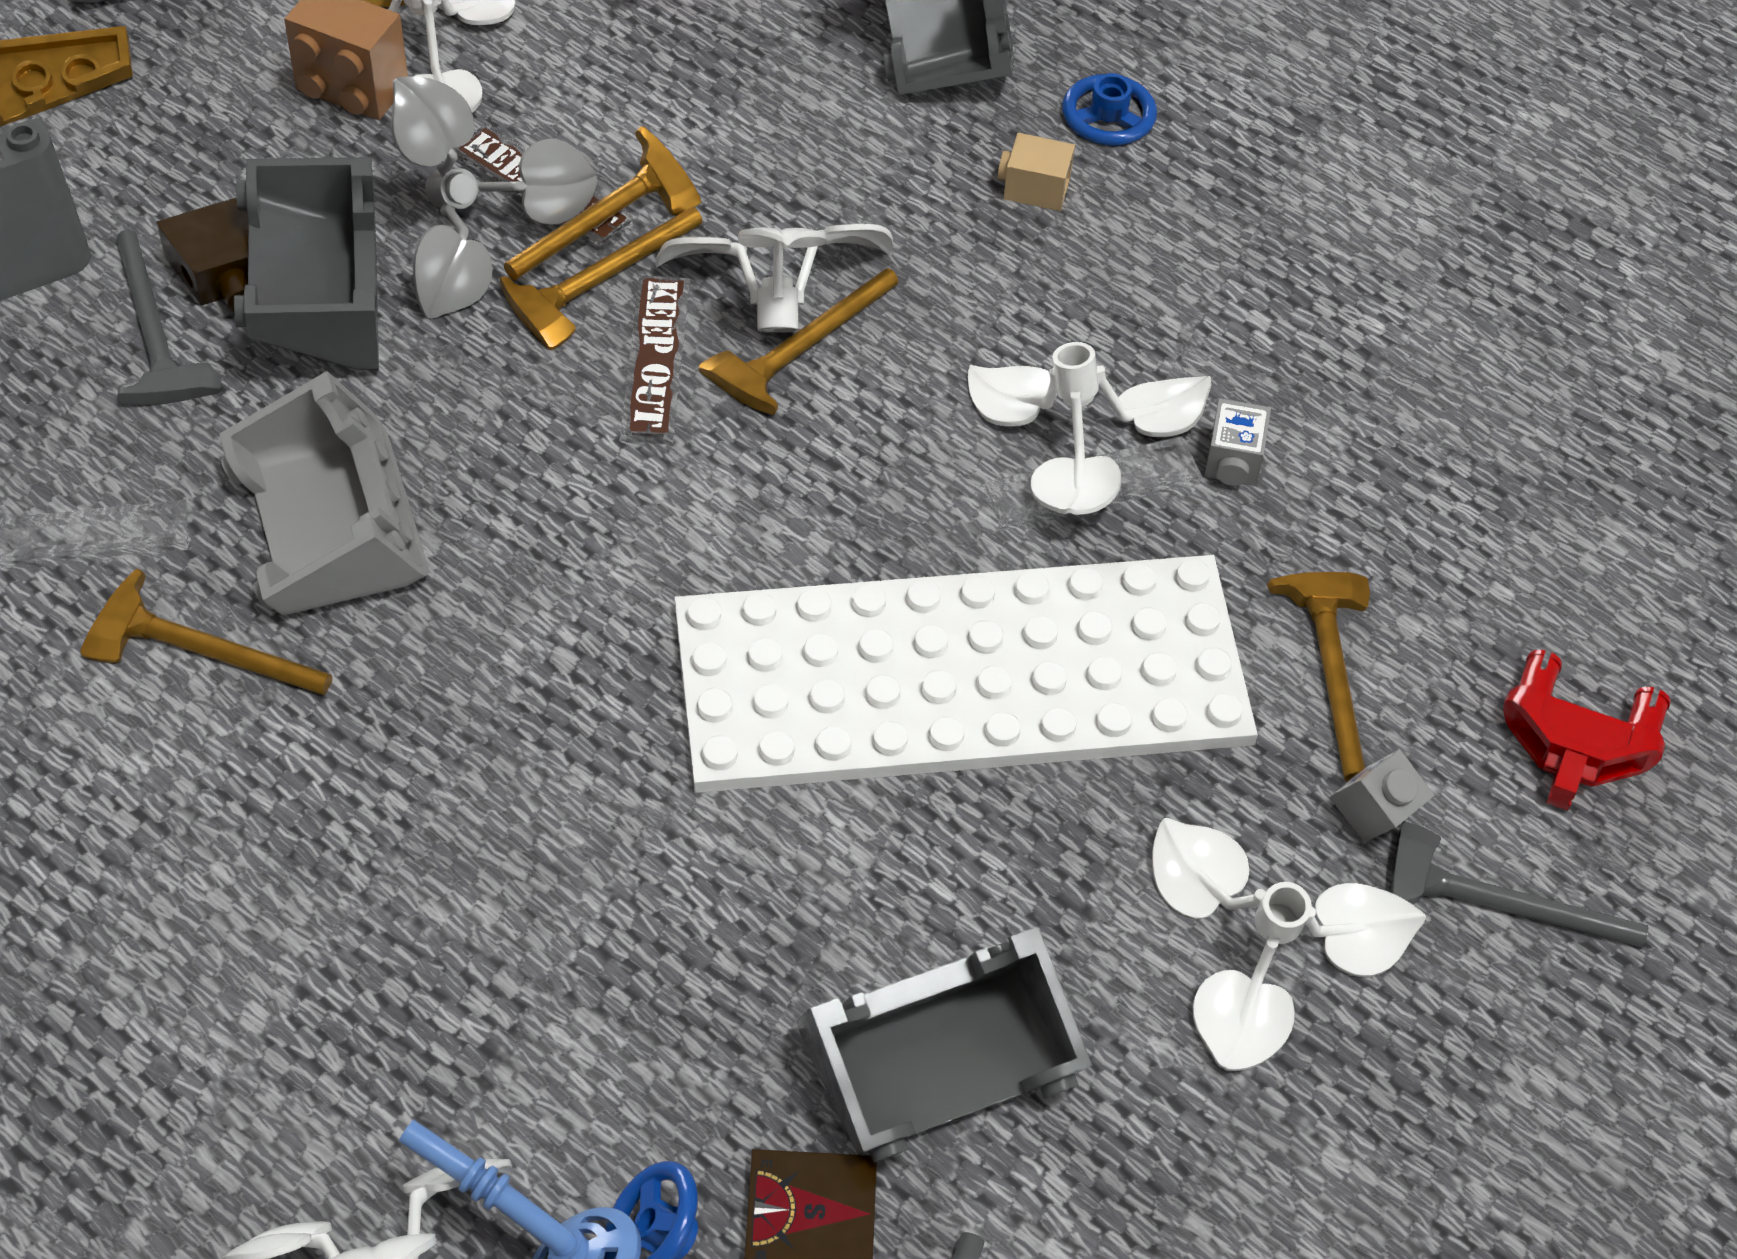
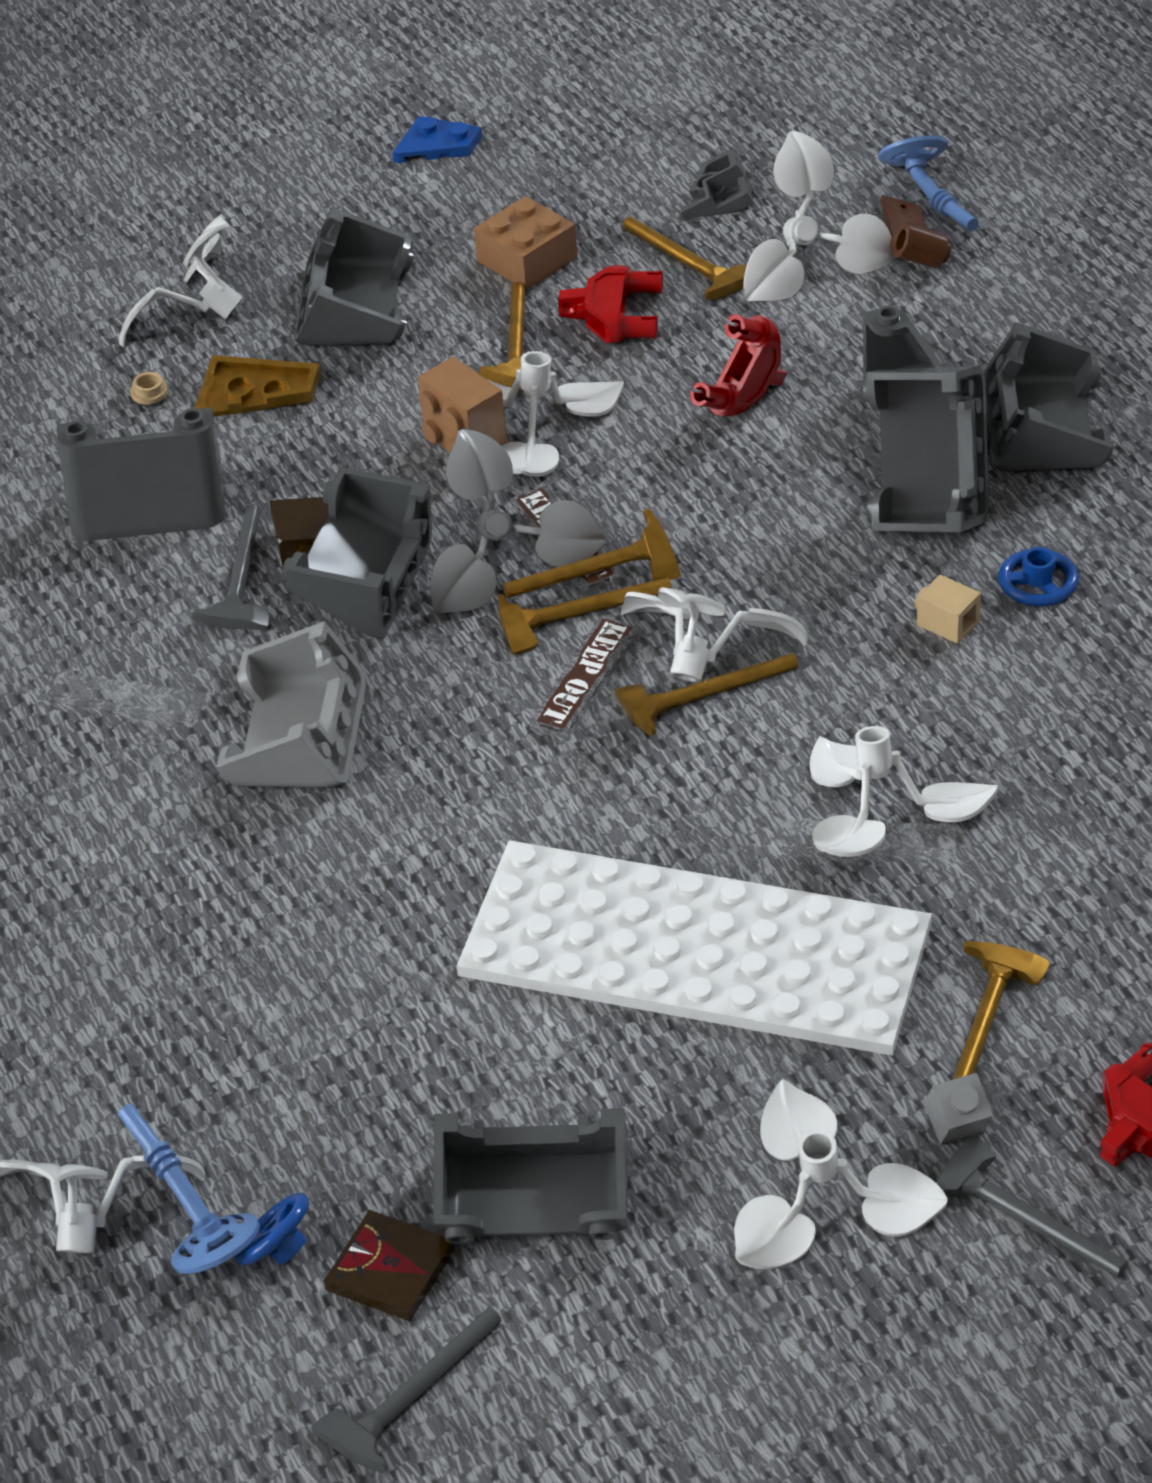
camera: 30 degrees right, 10 degrees down
(126, 617) = (129, 760): pearl gold piece -> none
(1237, 442) = (994, 838): light grey brick -> none

